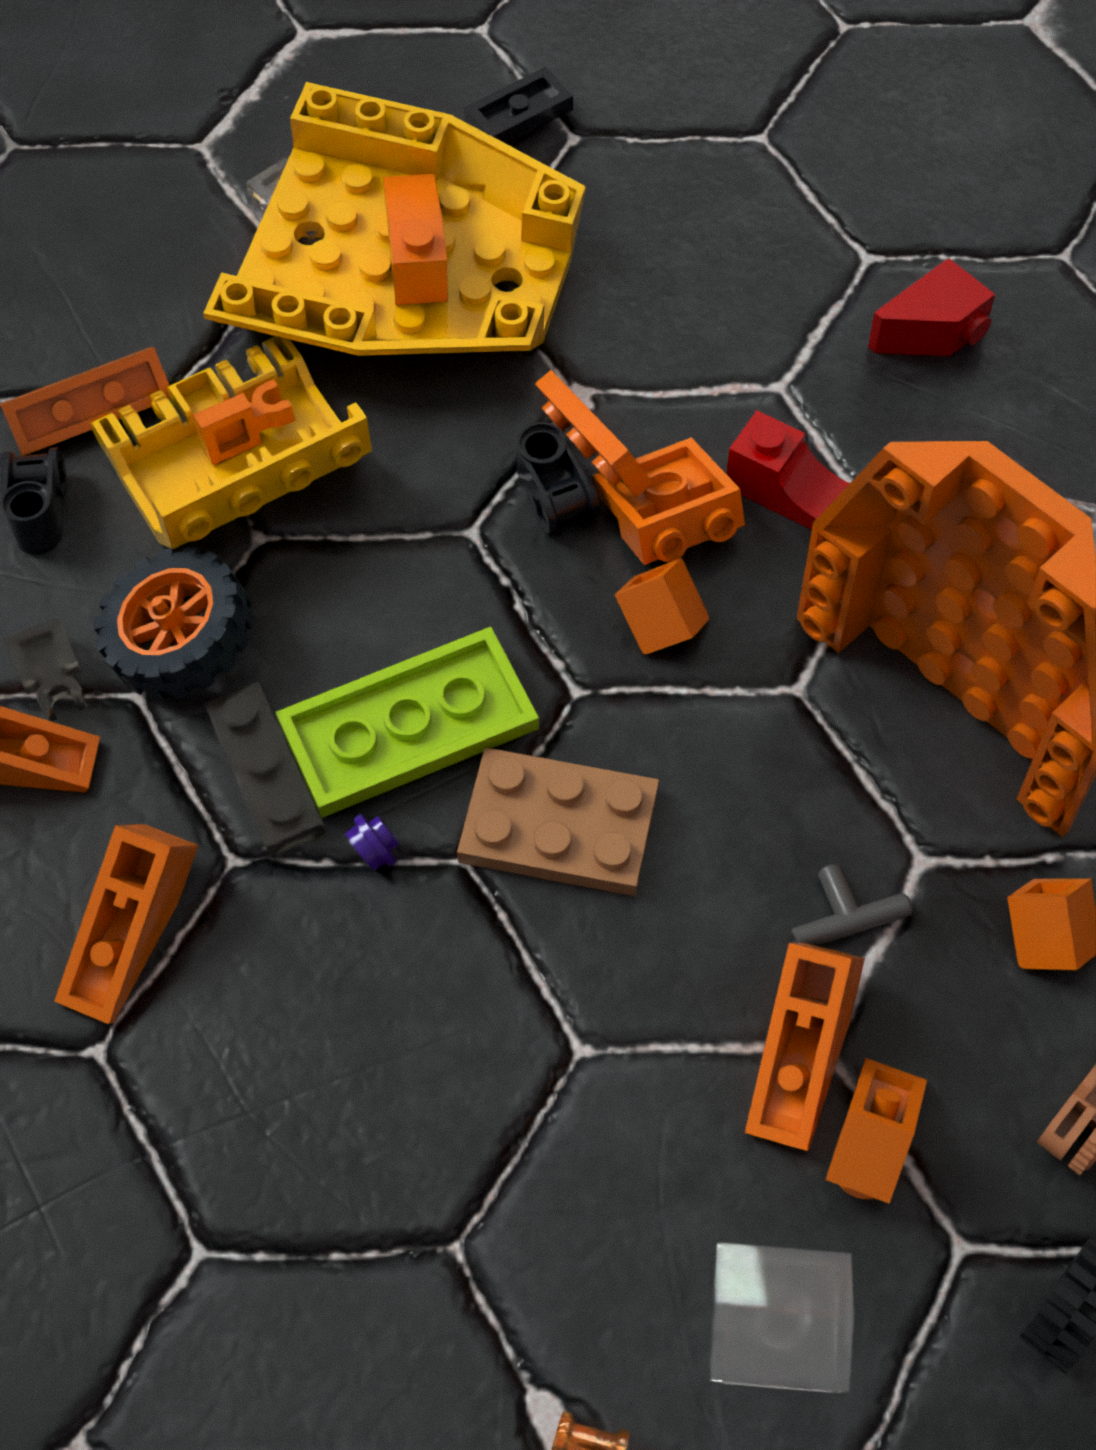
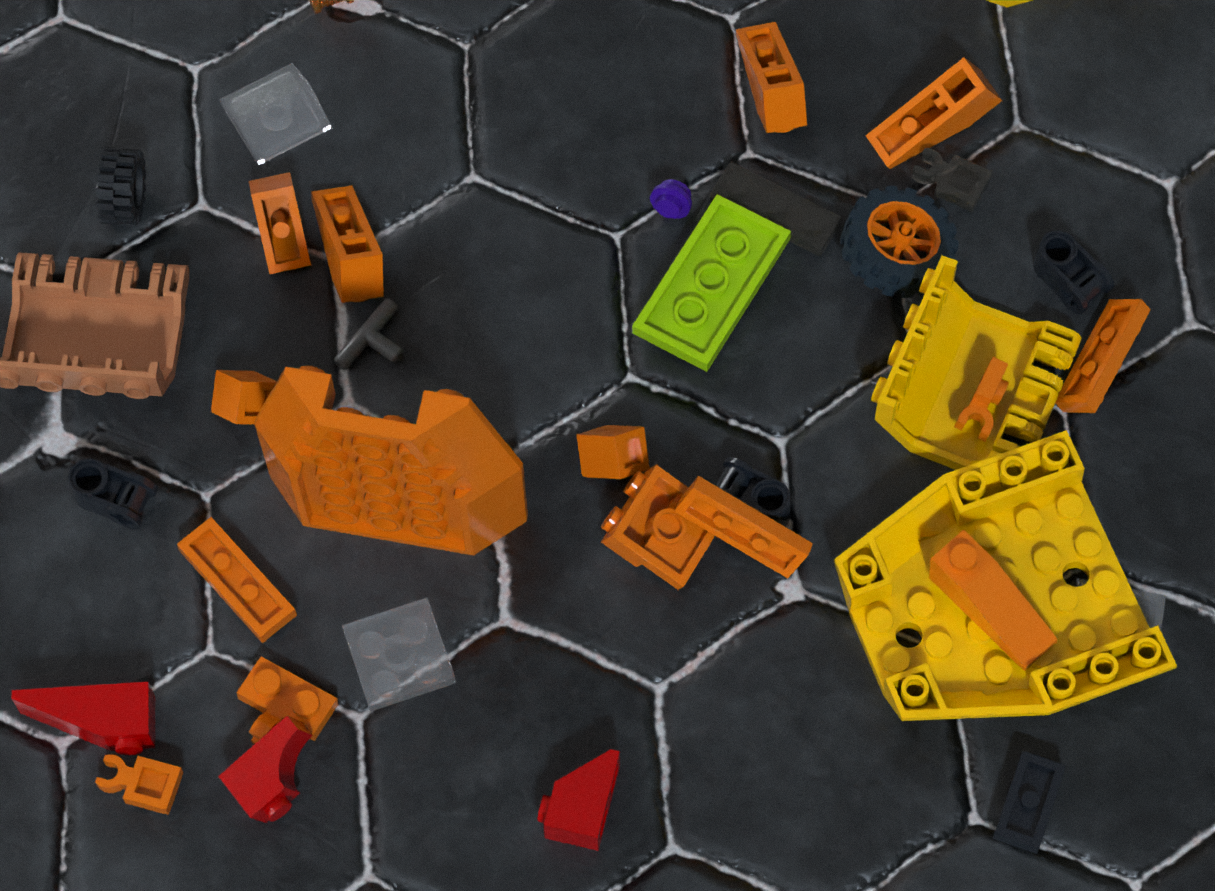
camera: 145 degrees right, 5 degrees up
(558, 821) = (577, 286): medium nougat plate -> none
(780, 471) = (600, 598): red arch -> none

